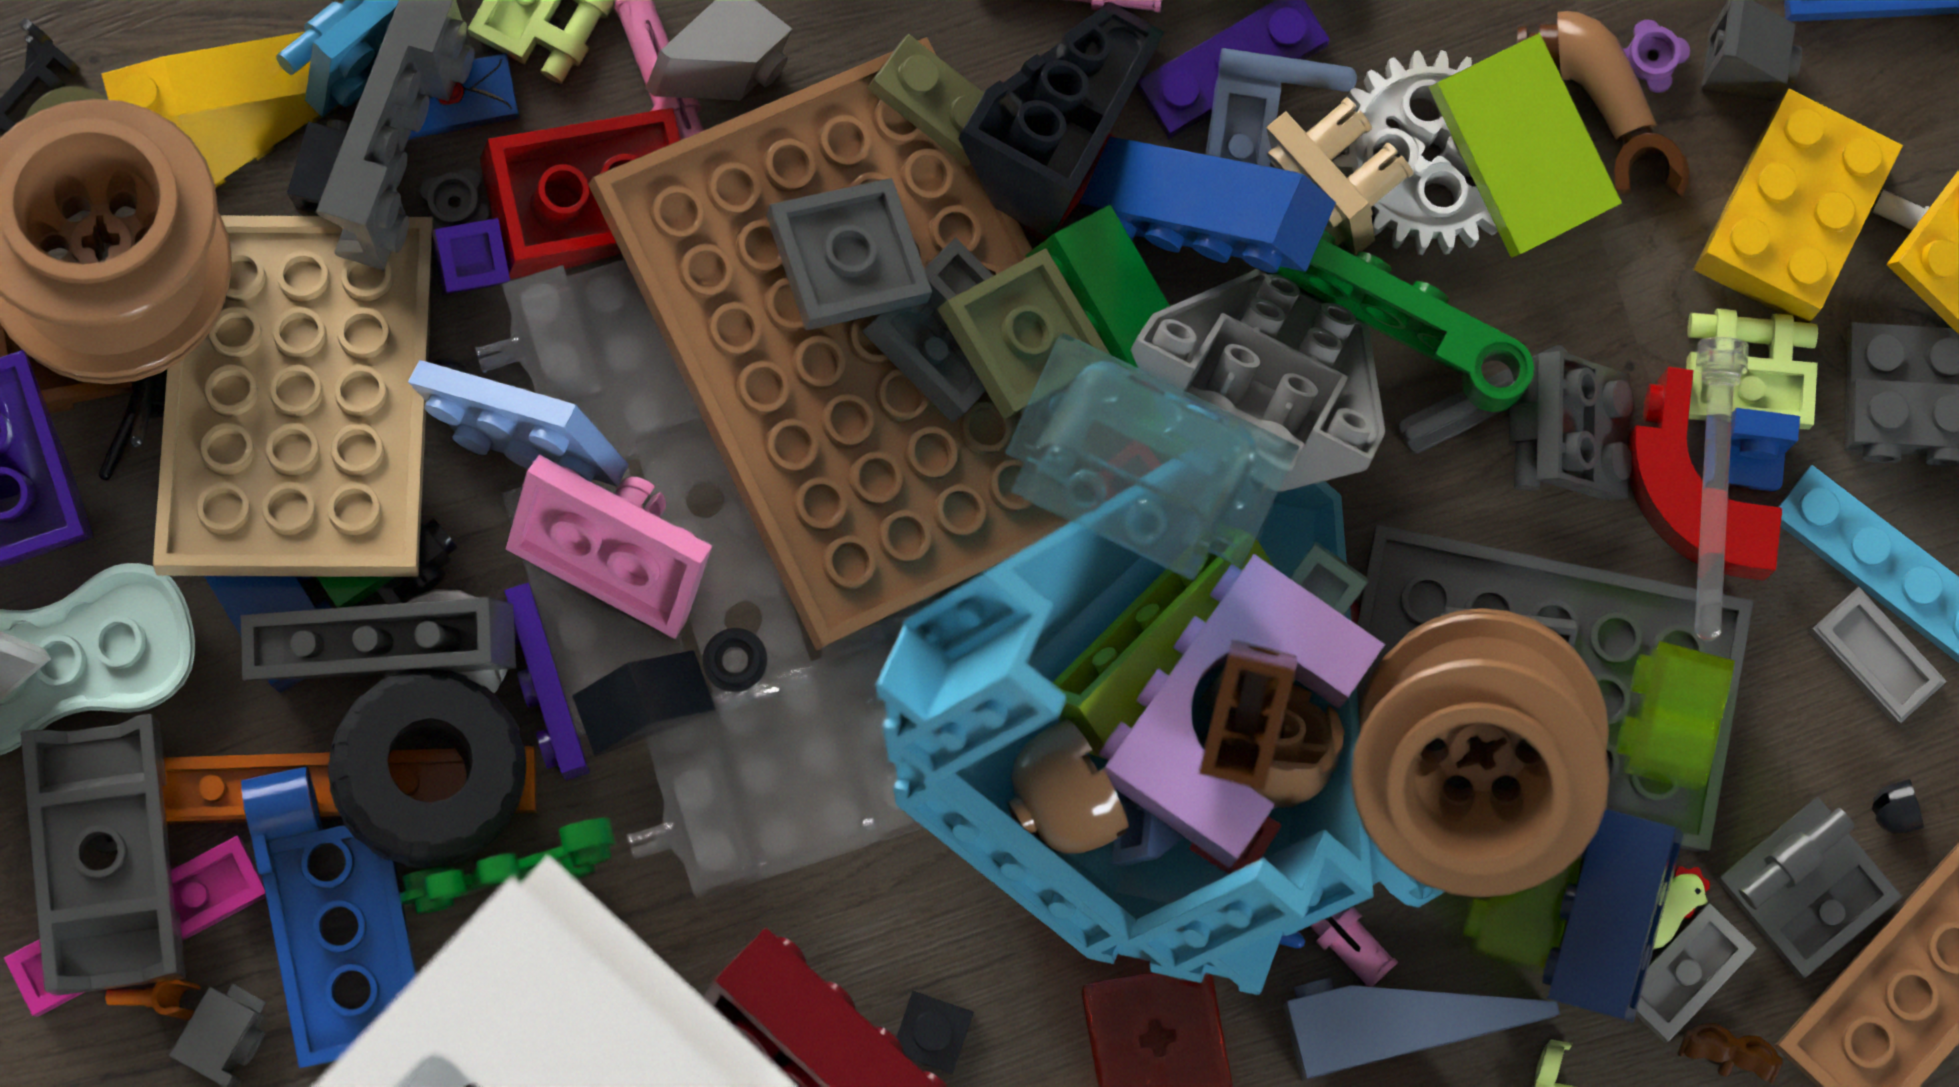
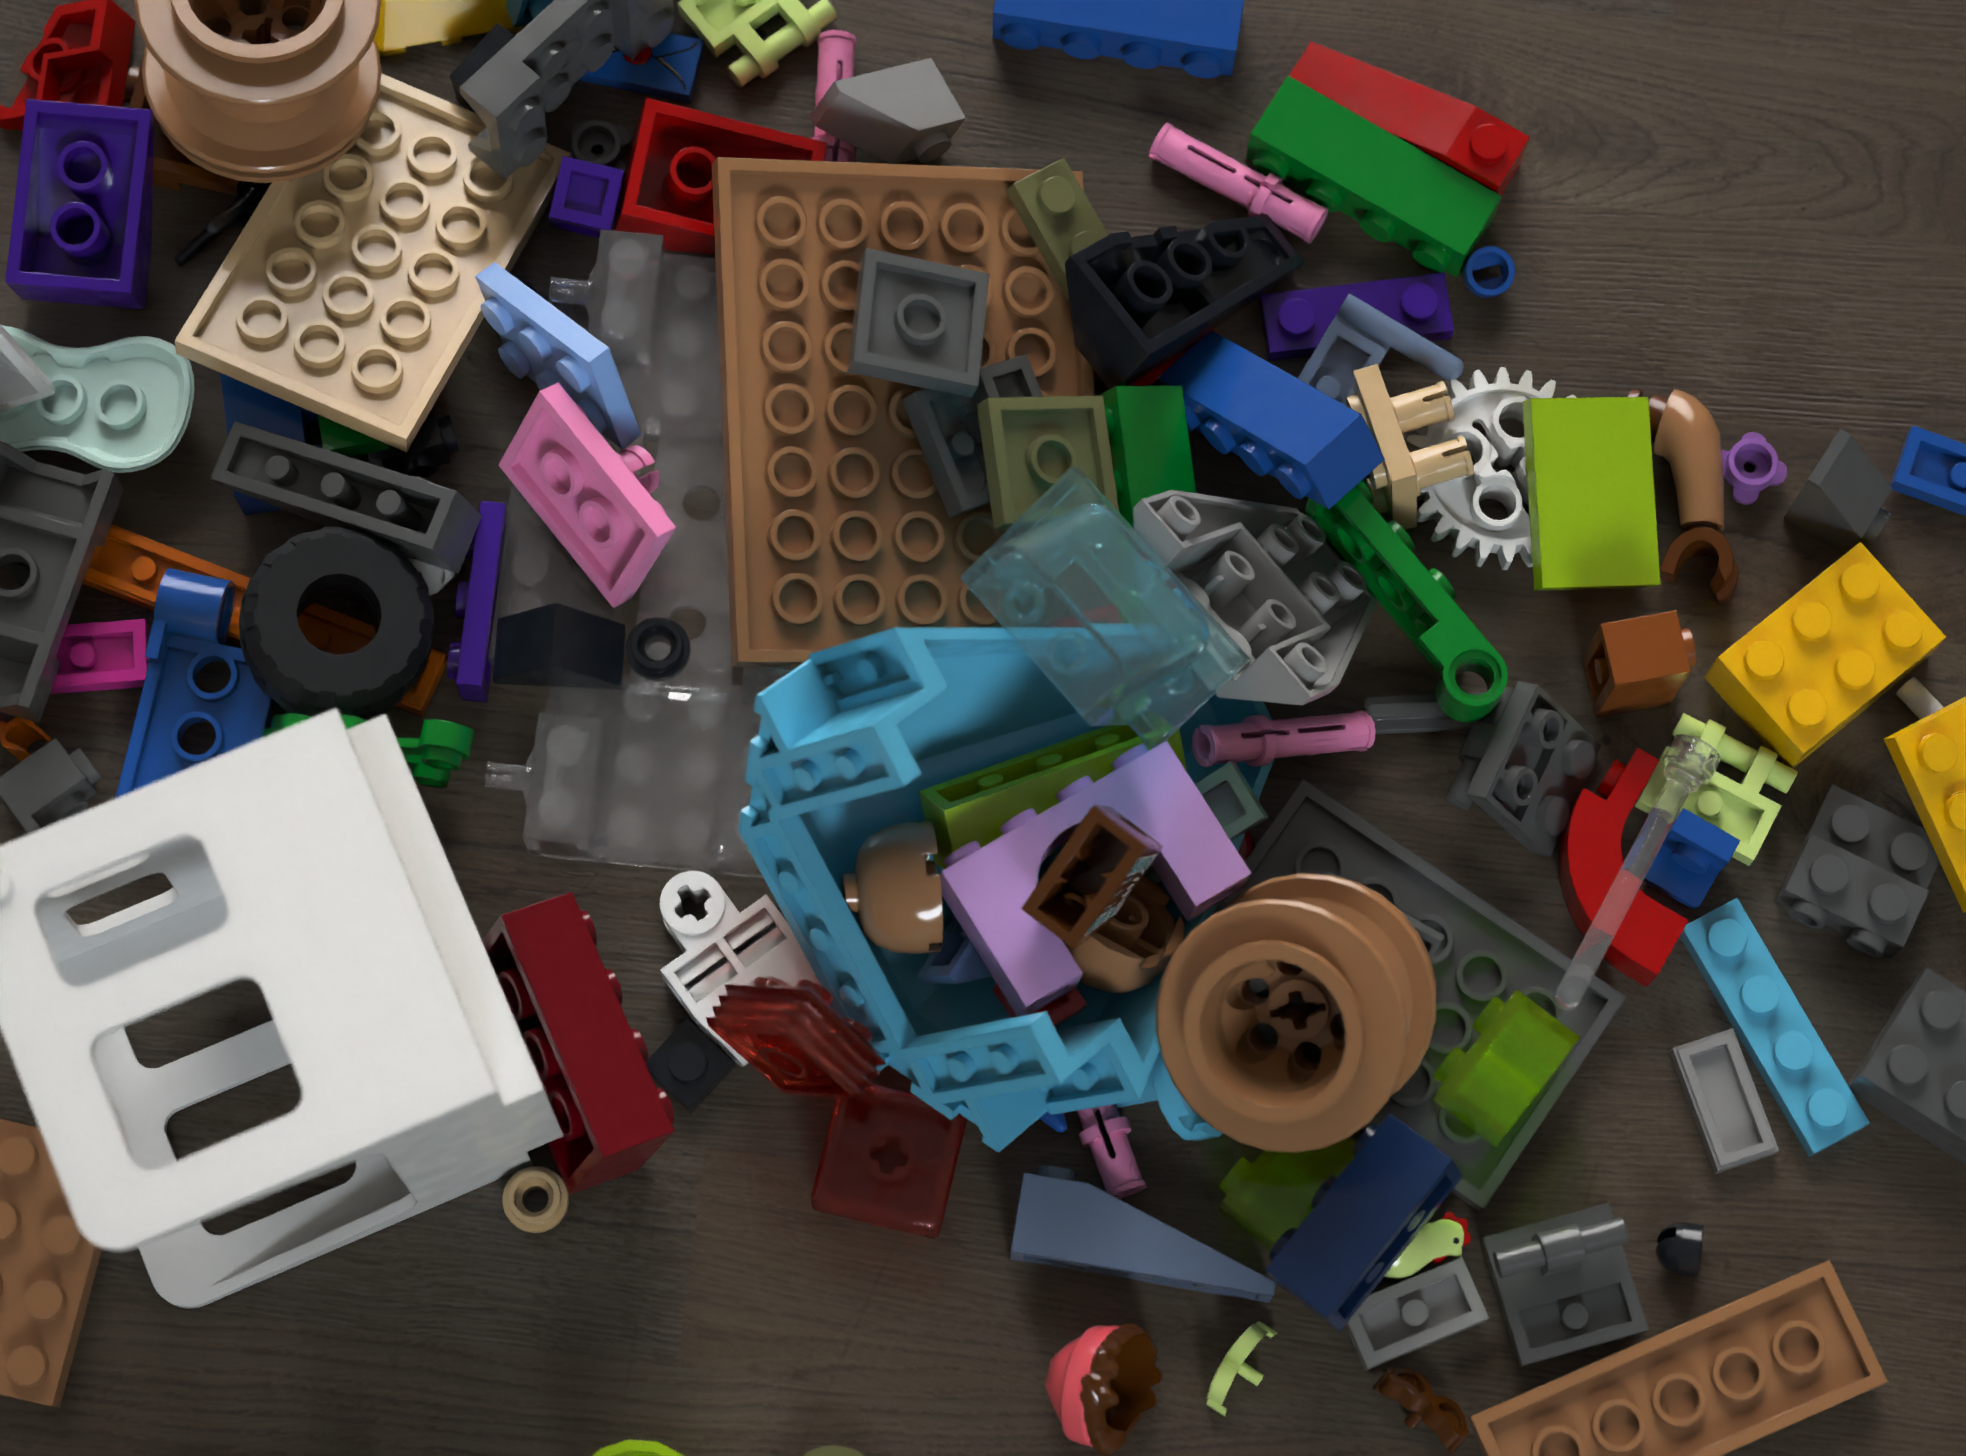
camera: 25 degrees right, 5 degrees down
(969, 903) = (725, 948): none -> white piece
(1030, 970) = (797, 1038): none -> clear red brick
(1344, 496) = (1262, 740): none -> bright pink pin
(1636, 288) = (1638, 663): none -> dark orange brick

